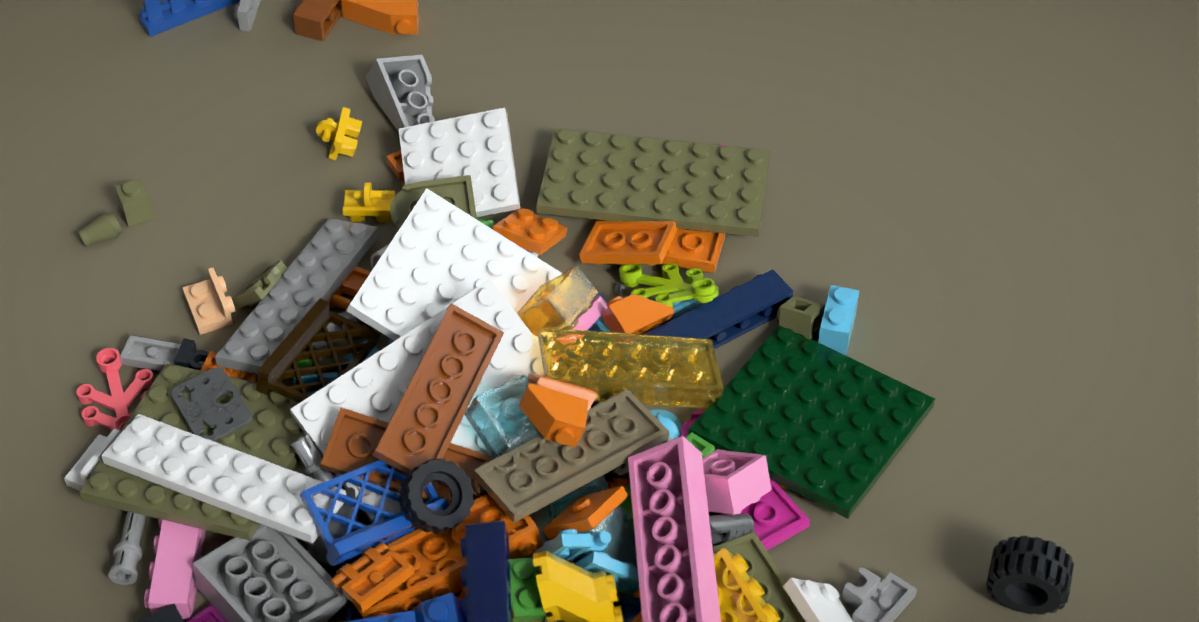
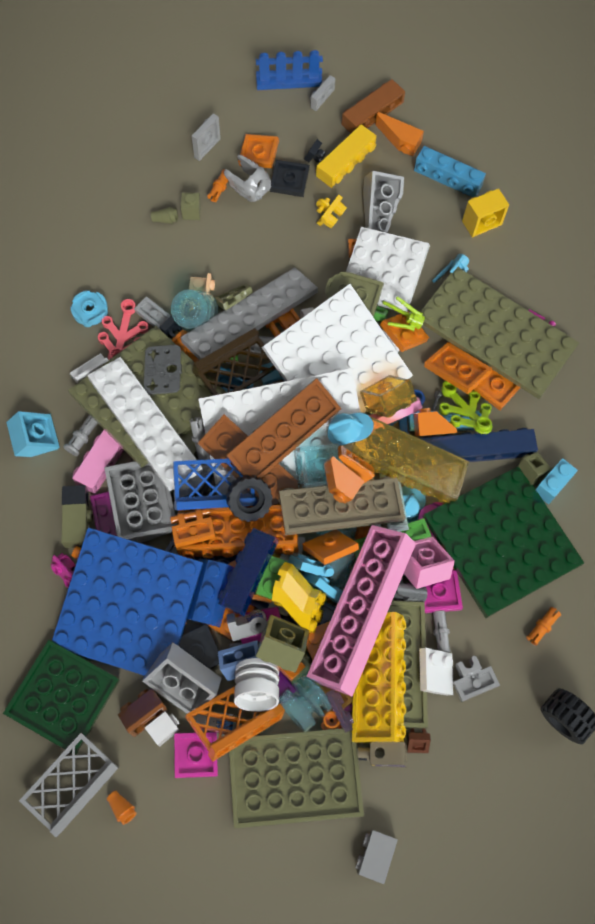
camera: 25 degrees right, 20 degrees up
(48, 579) = (32, 434): none -> medium azure slope
(51, 399) = (91, 317): none -> medium azure plate
(111, 110) = (206, 137): none -> light grey plate
(161, 164) = (218, 187): none -> orange pin
(195, 103) = (260, 149): none -> orange plate
(207, 138) = (248, 188): none -> light grey piece
(229, 313) = (203, 308): none -> clear light blue wheel
(259, 118) = (289, 178): none -> black plate
(278, 75) = (315, 153): none -> black tile
(325, 64) = (346, 156): none -> yellow brick
(368, 203) = (320, 267): yellow hips -> none
(479, 26) = (449, 171): none -> dark azure brick
(528, 352) = (349, 428): none -> medium azure piece
(537, 207) = (414, 319): none -> lime plant
(554, 121) = (460, 261): none -> medium azure plant
(556, 54) = (485, 212): none -> yellow brick
(793, 557) = (441, 631): none -> light grey pin
(929, 496) = (543, 626): none -> orange pin

